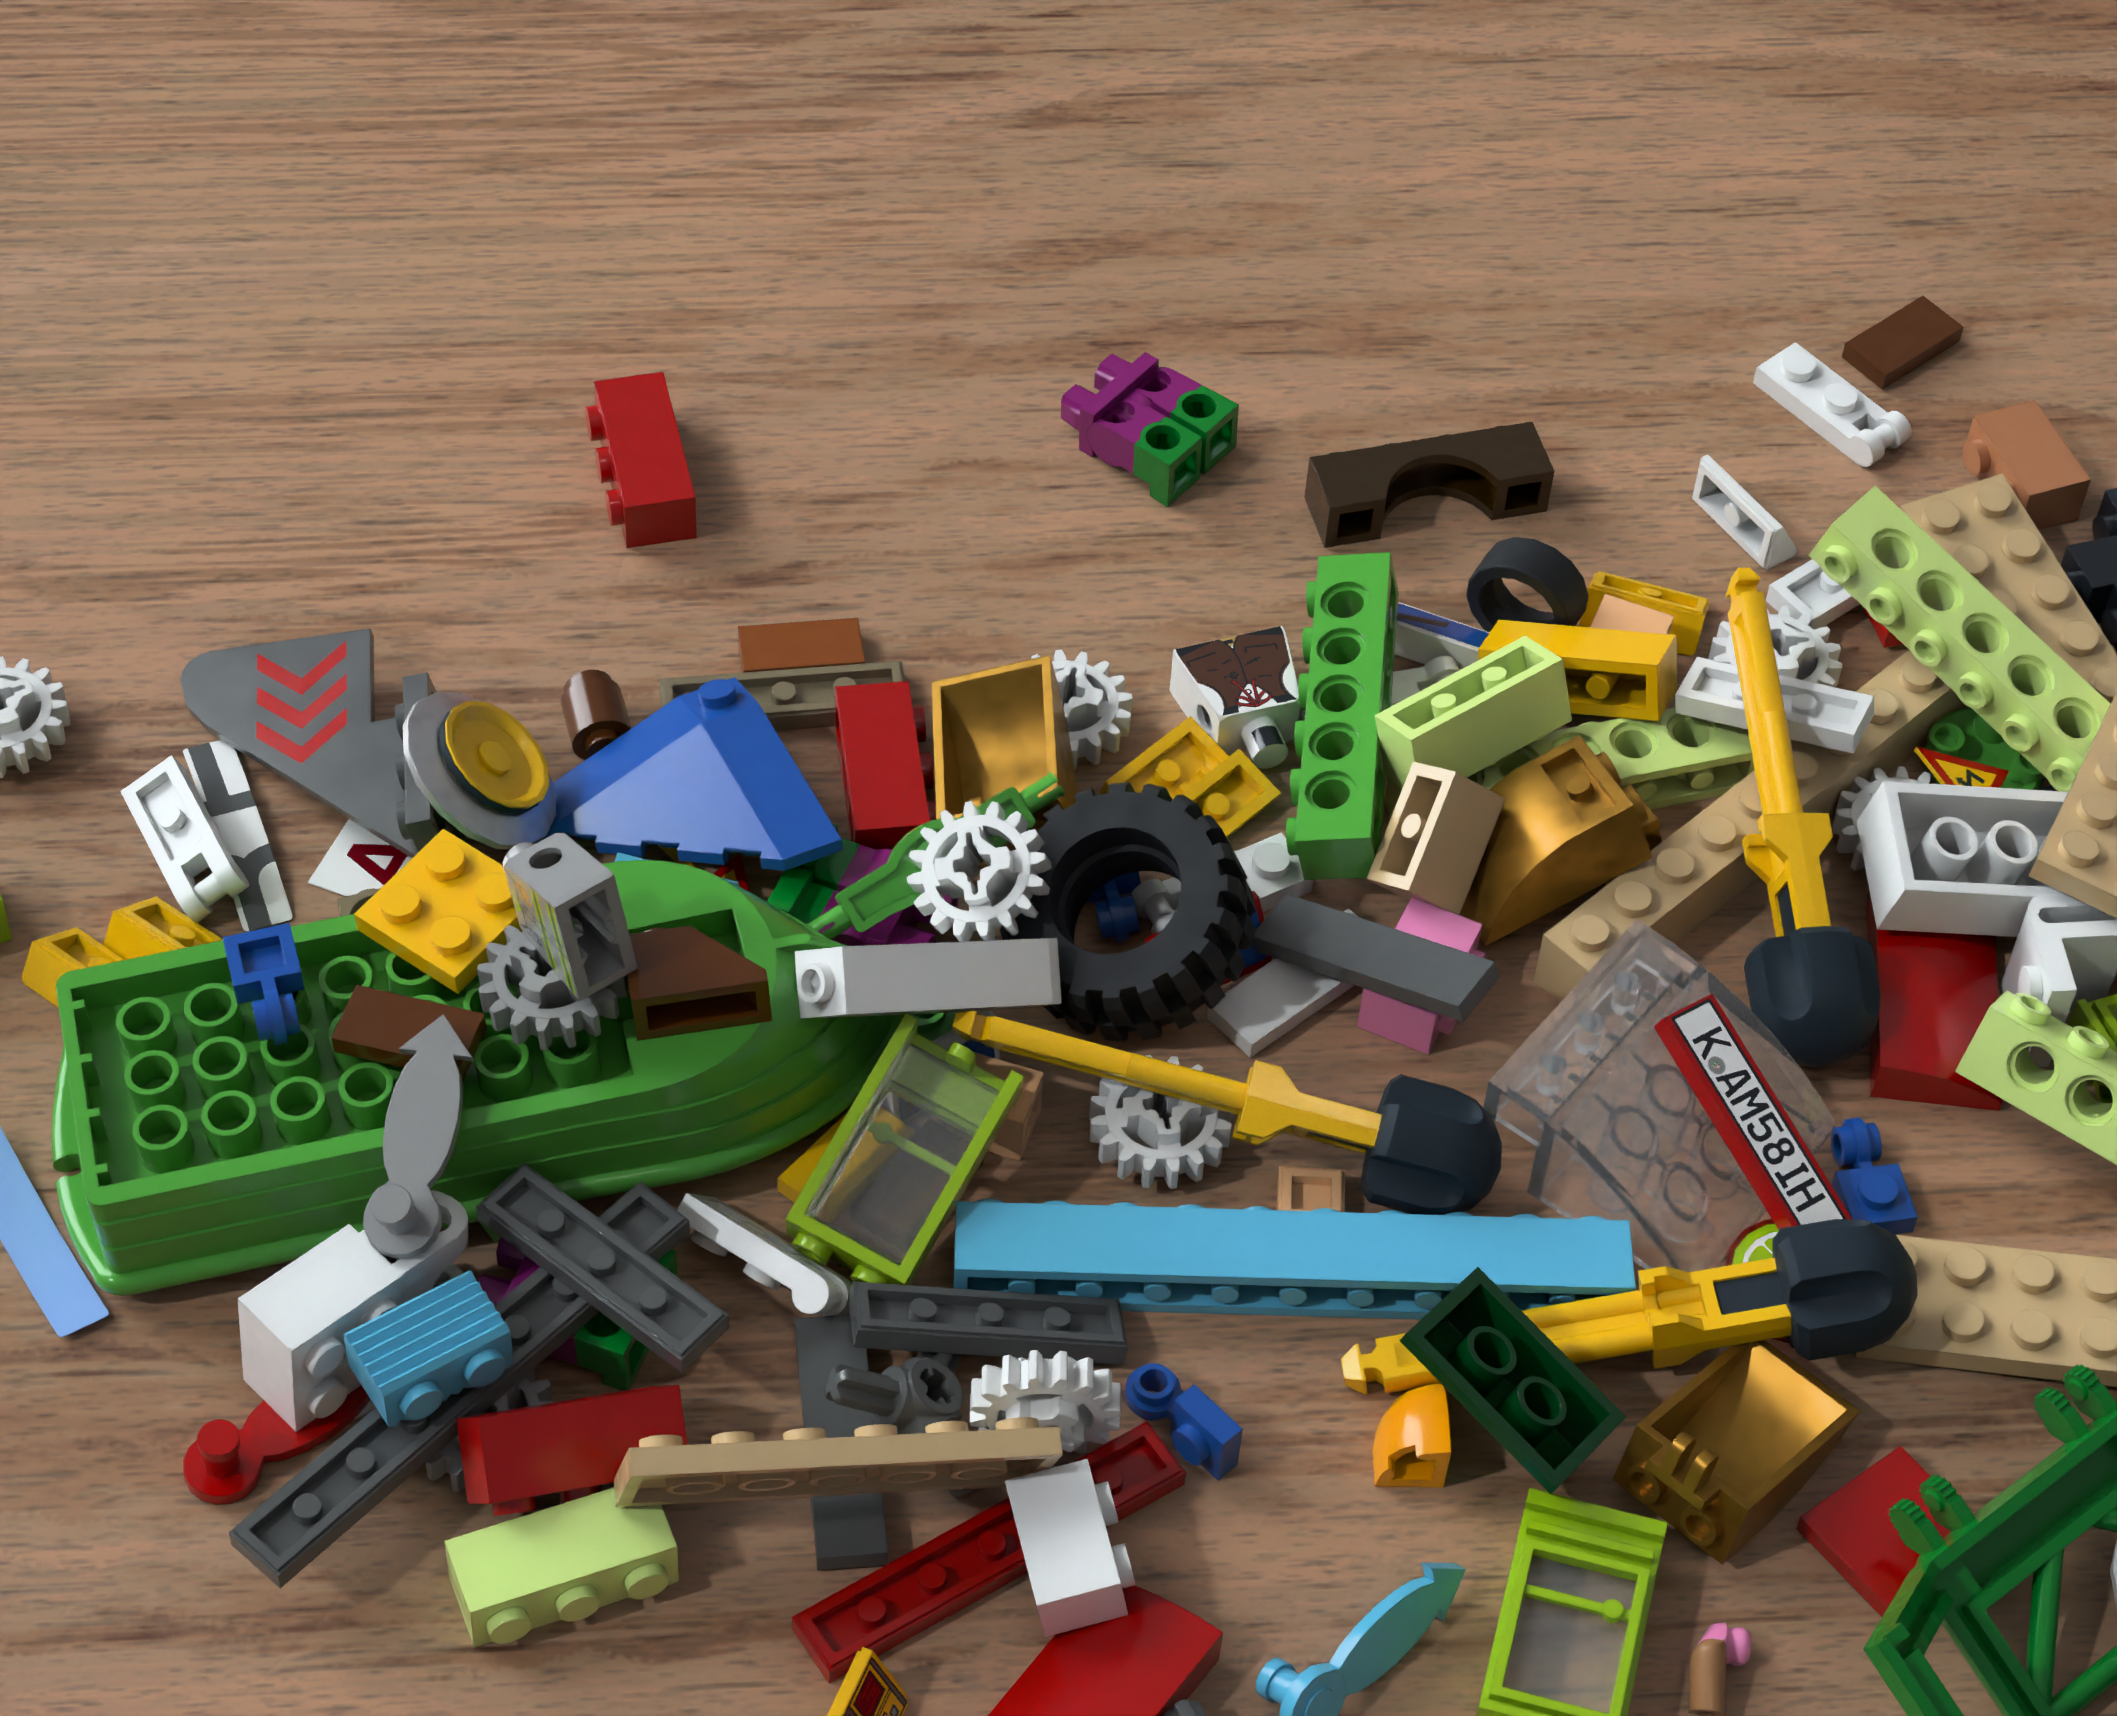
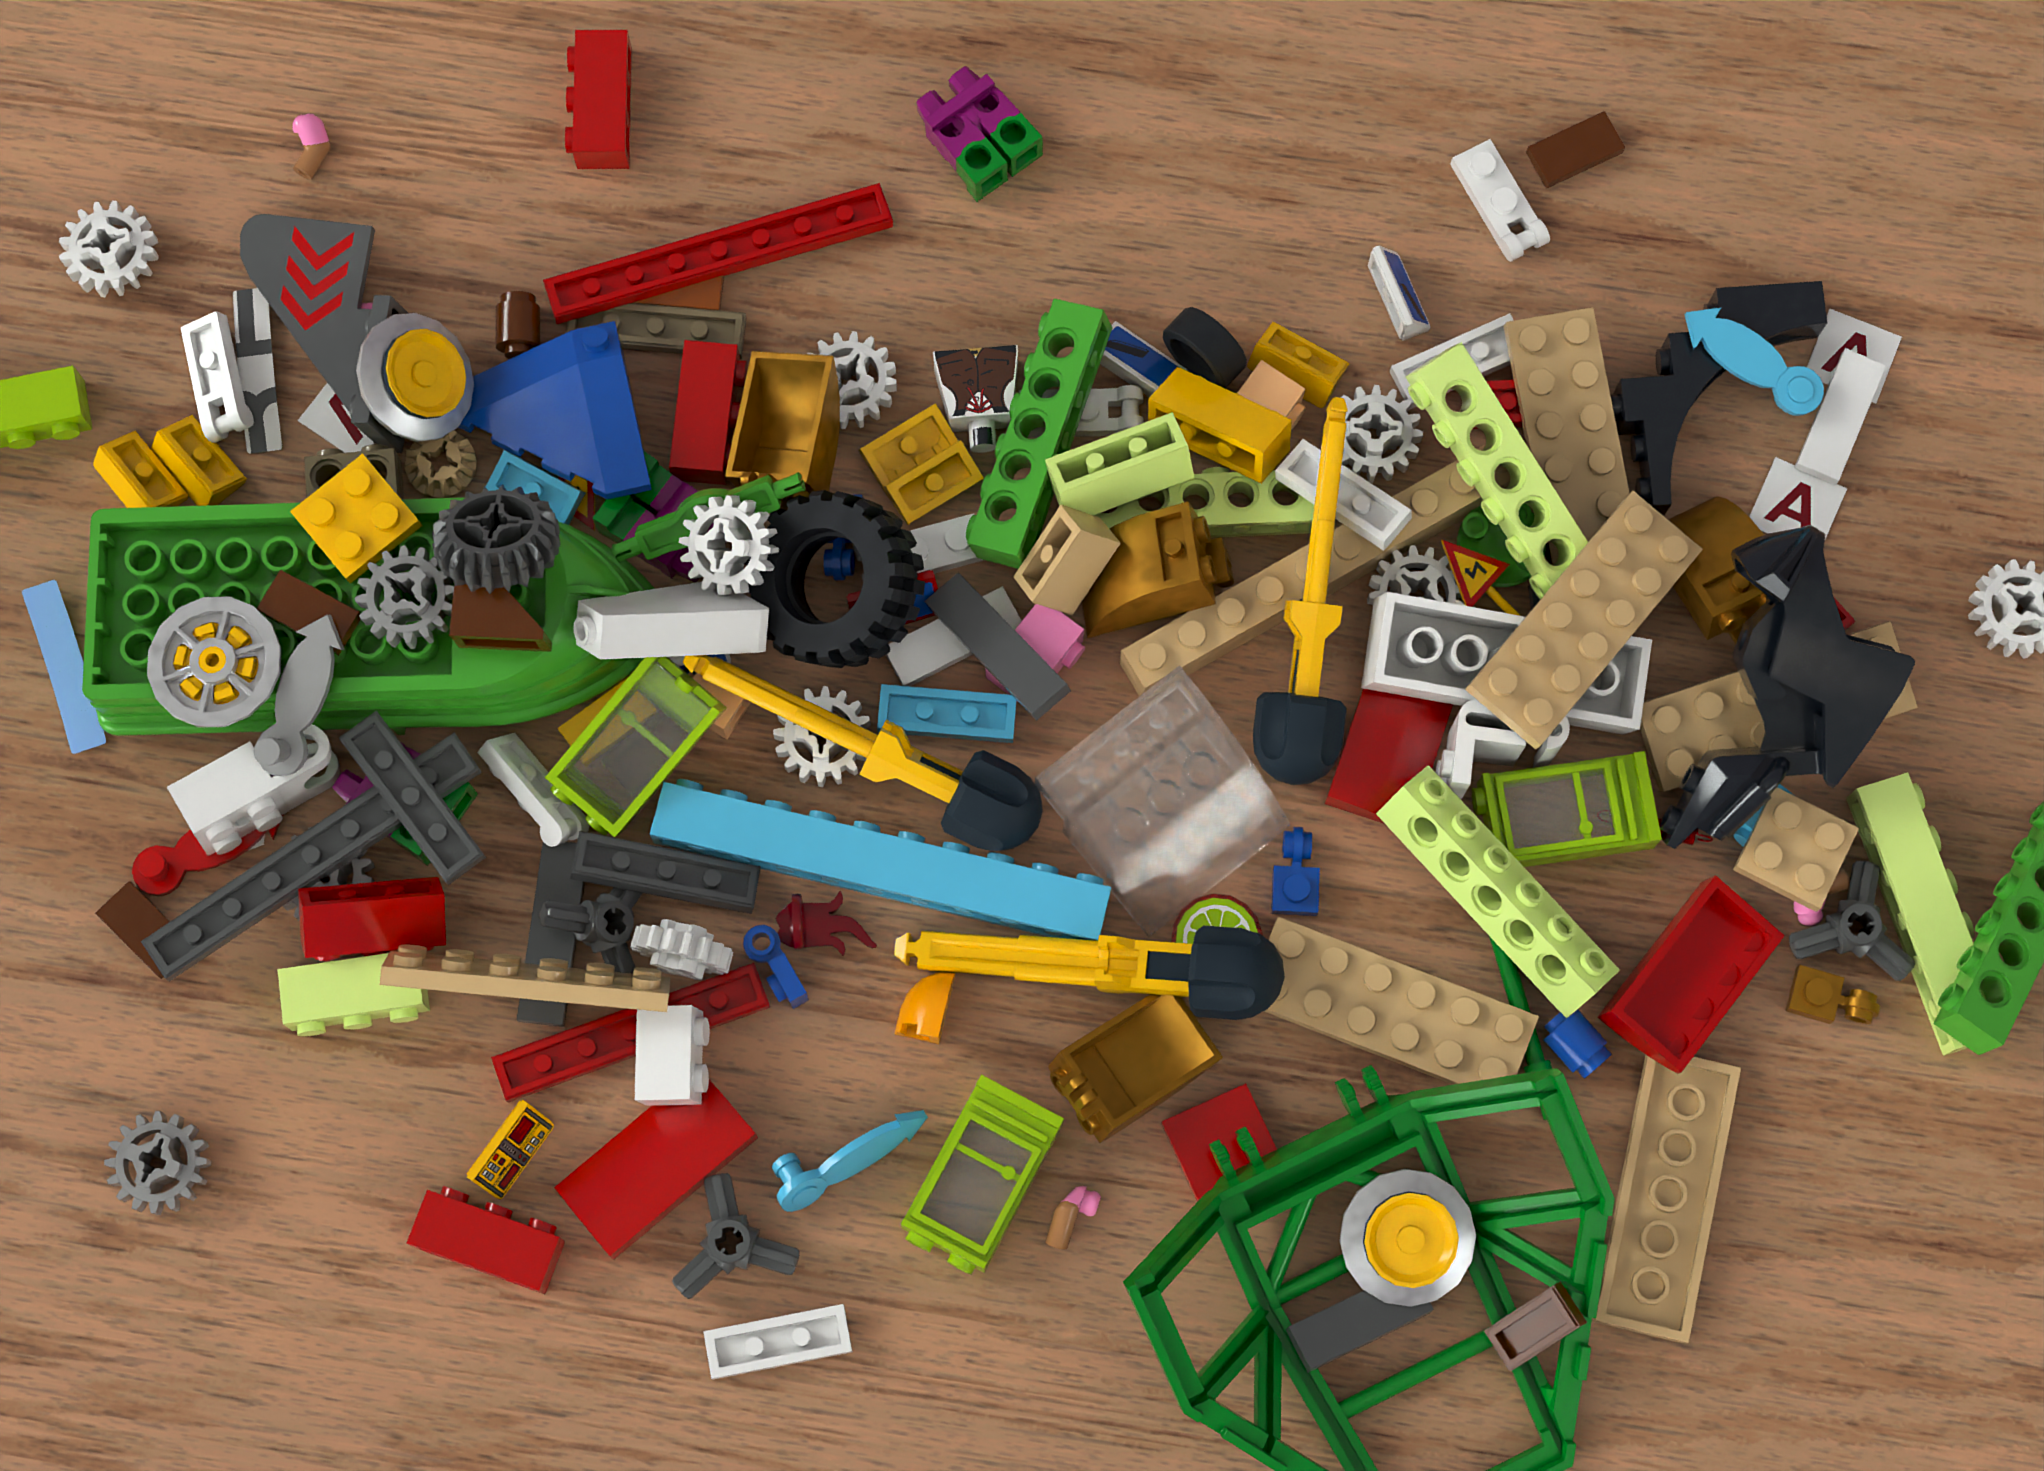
camera: 15 degrees right, 25 degrees up
(194, 1536) = (132, 920): none -> reddish brown tile
(264, 565) = (315, 144): none -> arm
(265, 966) = (222, 542): blue plate -> none
(283, 1111) = (214, 662): none -> flat silver piece
(430, 1349) = (285, 844): medium azure brick -> none
(565, 884) = (412, 568): light grey torso -> none
(680, 872) = (496, 539): none -> dark grey gear
(842, 601) = (718, 253): none -> red tile
(1222, 1358) = (811, 925): none -> dark red piece
(1310, 1189) = (911, 812): light nougat tile -> none
(1332, 1064) = (948, 713): none -> medium azure plate
(1492, 468) = (1220, 219): dark brown arch -> none
(1513, 1379) = (981, 1006): dark green slope -> none
(1749, 1115) = (1216, 833): tile -> none
(2033, 460) = (1622, 290): nougat brick -> none

